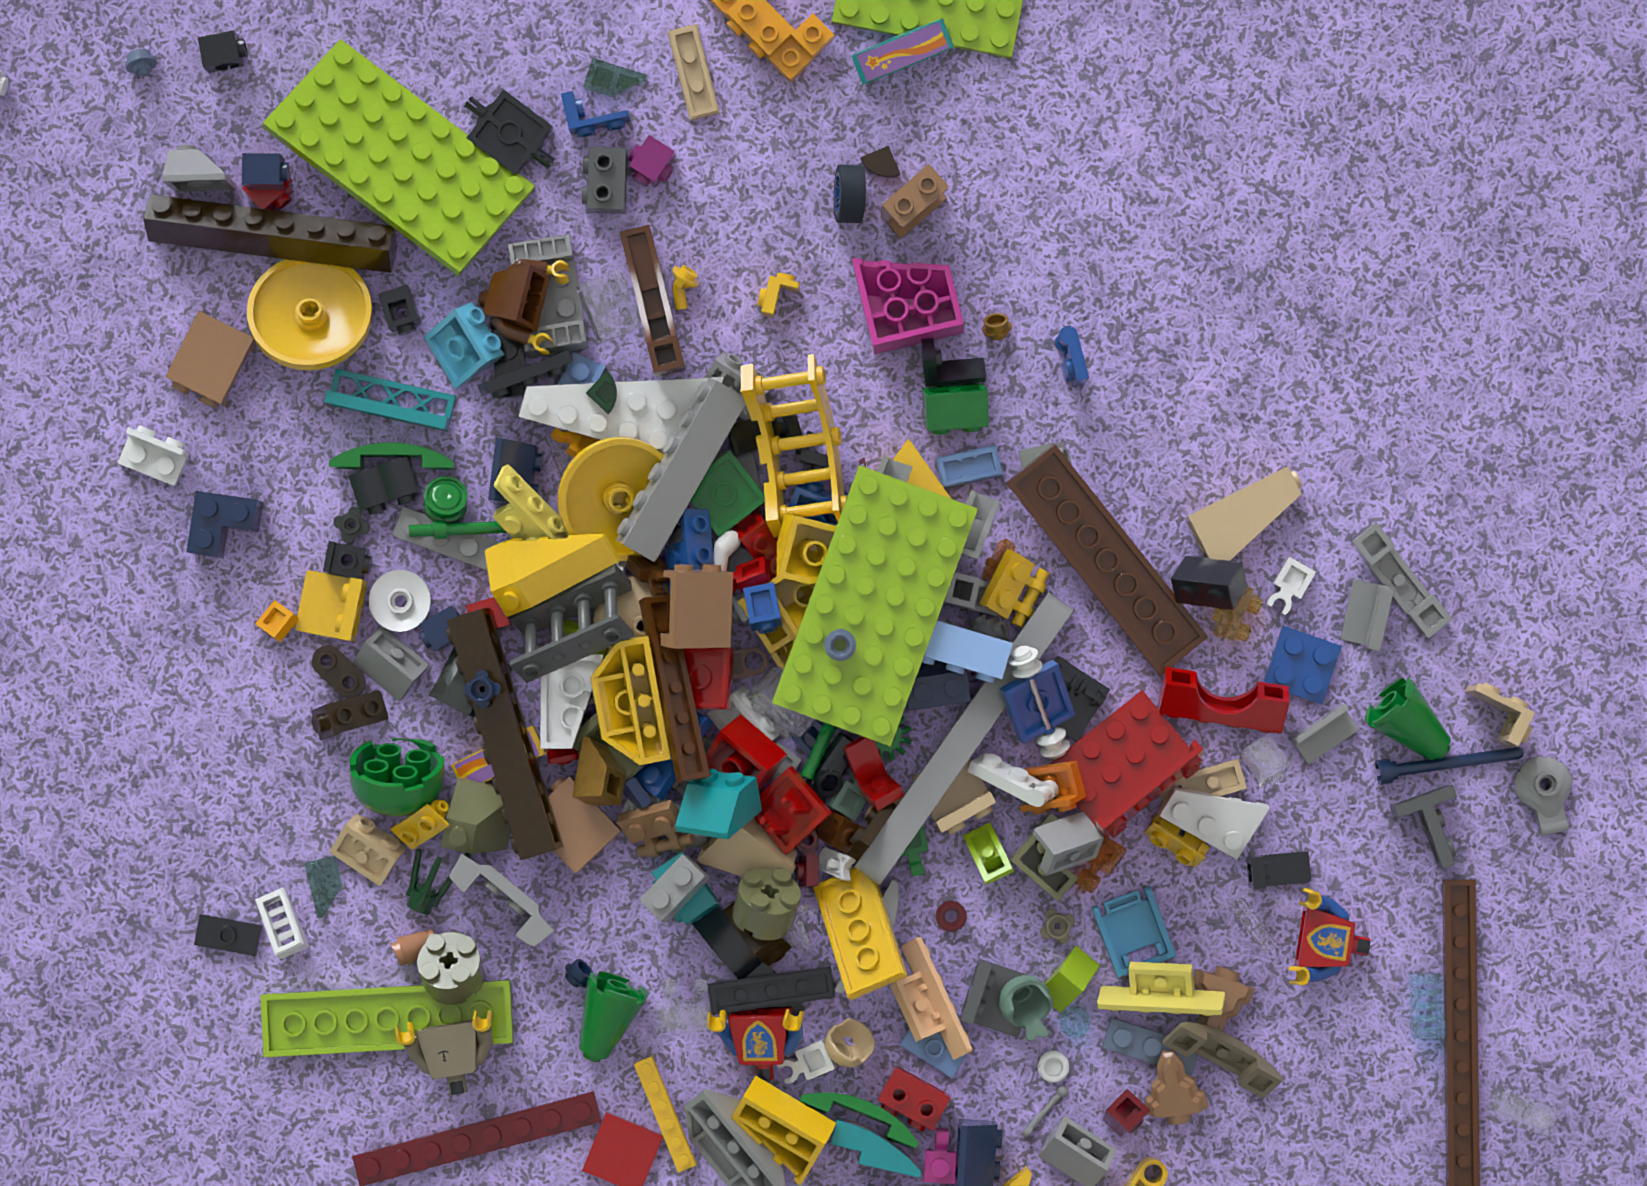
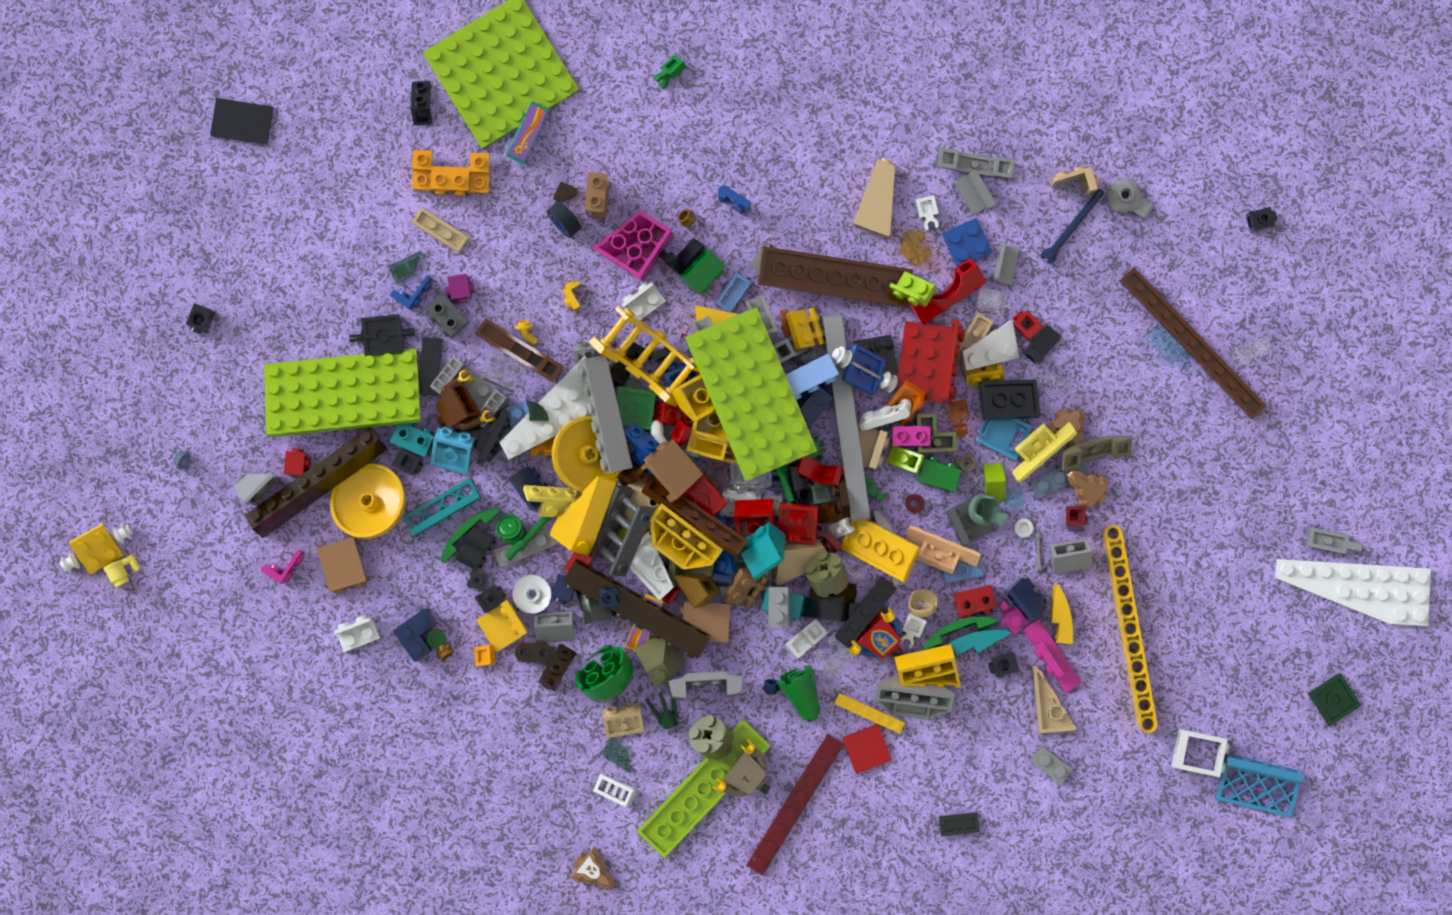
camera: 45 degrees left, 0 degrees up
(125, 292) = (274, 571): none -> dark pink bracket
(167, 991) = (592, 870): none -> medium nougat rock
(221, 51) = (215, 420): black brick -> none
(228, 934) = (595, 818): black plate -> none
(235, 572) = (444, 651): none -> pearl gold plate
(240, 548) = (436, 638): none -> green tile
(264, 171) = (287, 456): dark blue brick -> none
(409, 946) = (683, 747): nougat cone -> none
(422, 824) = (638, 685): yellow hinge -> none
(431, 288) = (413, 439): none -> teal brick
(533, 218) = (429, 364): none -> black tile
(672, 955) = (806, 638): none -> white slope
(763, 608) = (701, 442): blue bracket -> none
(840, 655) = (757, 421): sand blue plate -> none
(853, 378) = (644, 301): none -> white bracket
(1010, 909) = (939, 475): none -> green brick
(1018, 832) = (911, 435): none -> dark pink bracket
(1068, 842) = (937, 420): light grey panel -> none
(1142, 133) = (670, 69): none -> green plate
(1178, 898) = (1009, 399): none -> black plate
(1187, 662) = (914, 289): none -> lime bracket
(1209, 582) = (890, 244): black brick -> none
(1291, 836) = (1033, 328): none -> red brick
(1325, 940) = (1092, 357): torso -> none
(1409, 720) = (1038, 222): green cone -> none
(1431, 820) = (1090, 258): dark grey bracket -> none

